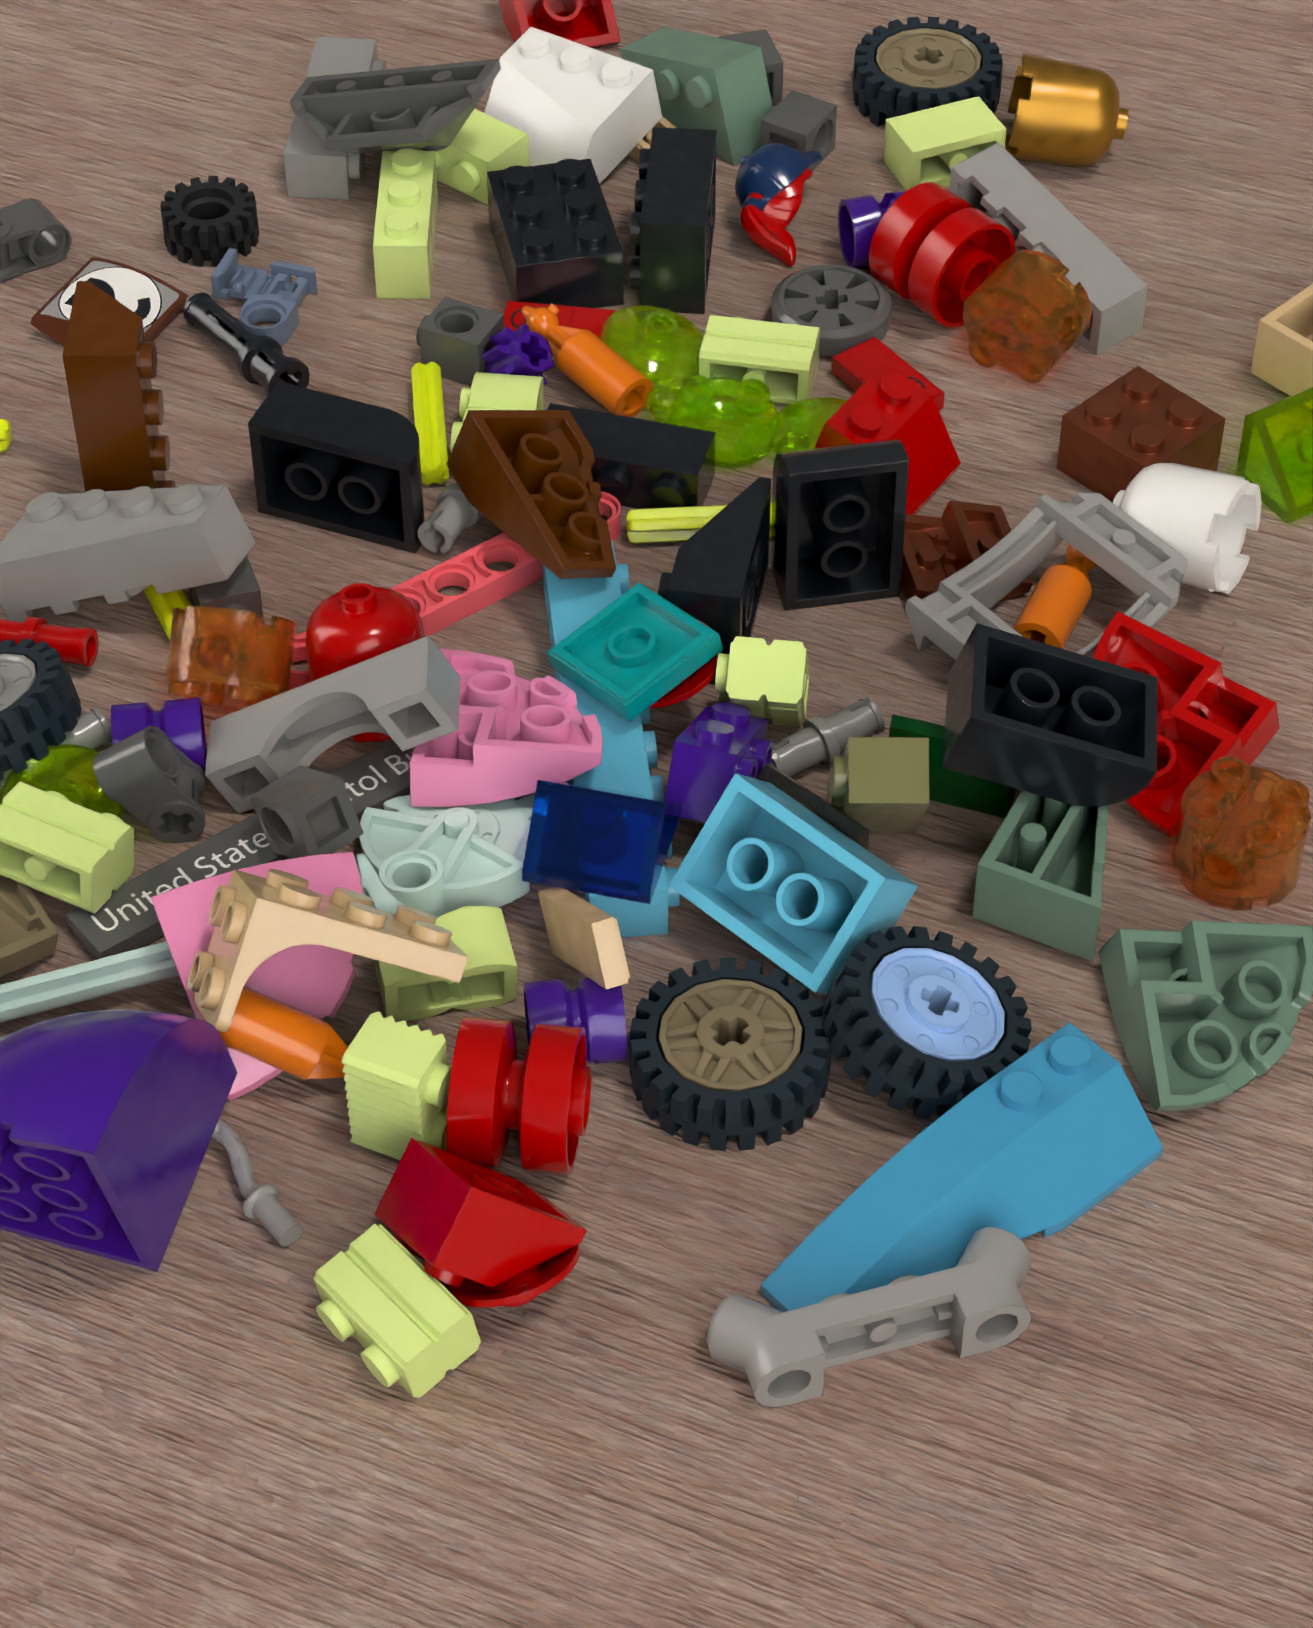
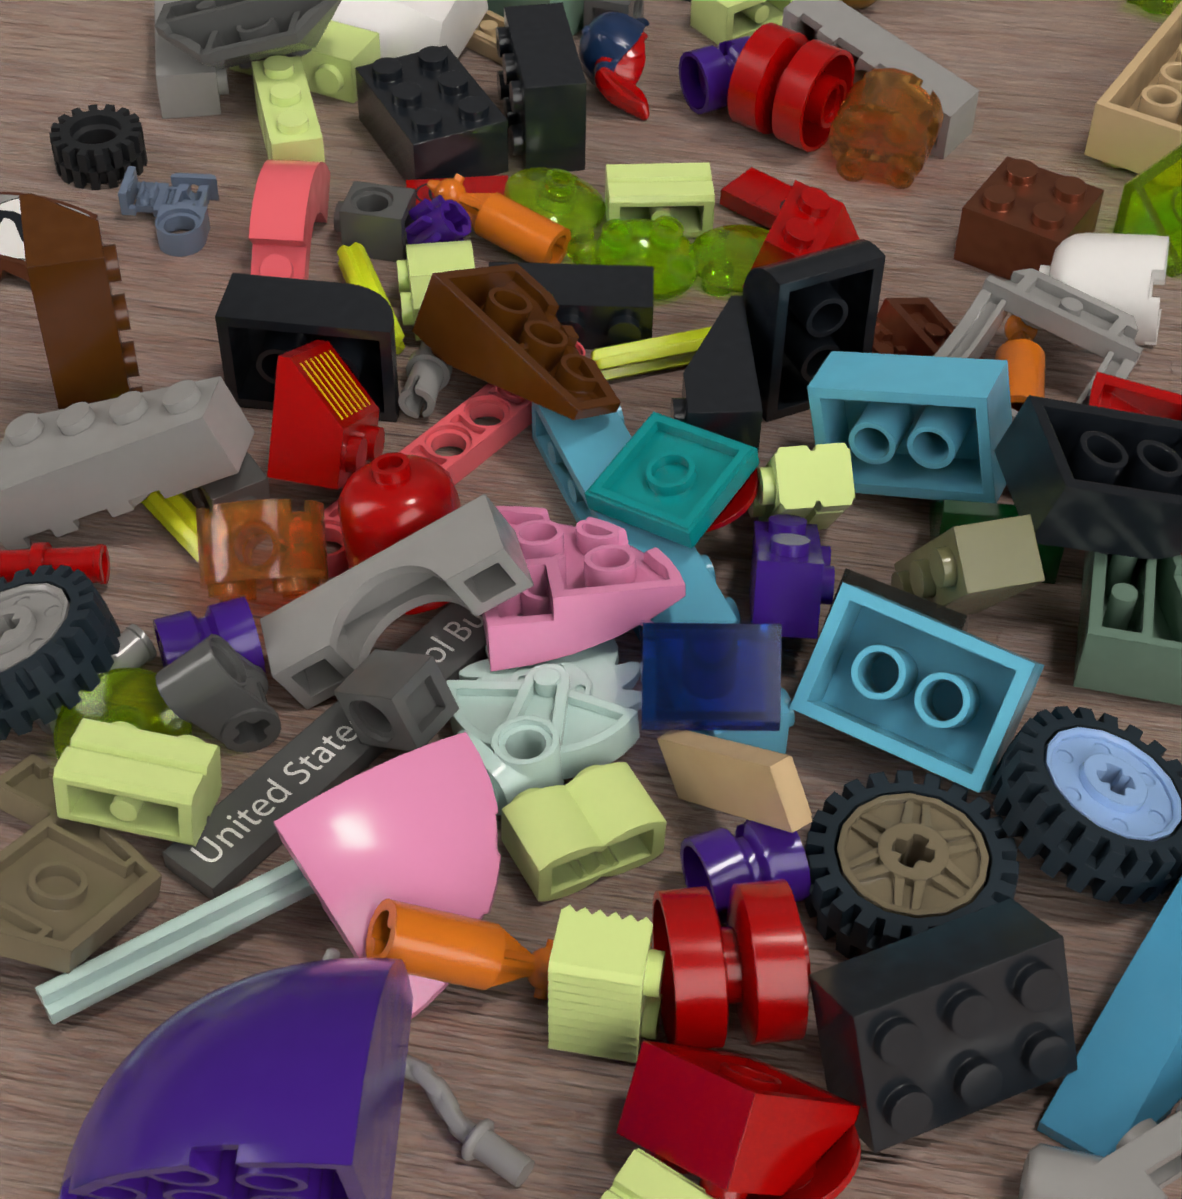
camera: 15 degrees left, 0 degrees up
(257, 357) = (185, 261): black pin -> none
(278, 912) = (428, 825): tan bracket -> none
(324, 536) = (321, 419): none -> red slope
(360, 324) = (283, 213): none -> coral arch
(688, 1177) = (945, 1022): none -> black brick
(826, 737) = (864, 534): light grey pin -> none
(839, 300) = (705, 137): dark grey wheel -> none
(887, 630) = (915, 422): none -> medium azure brick

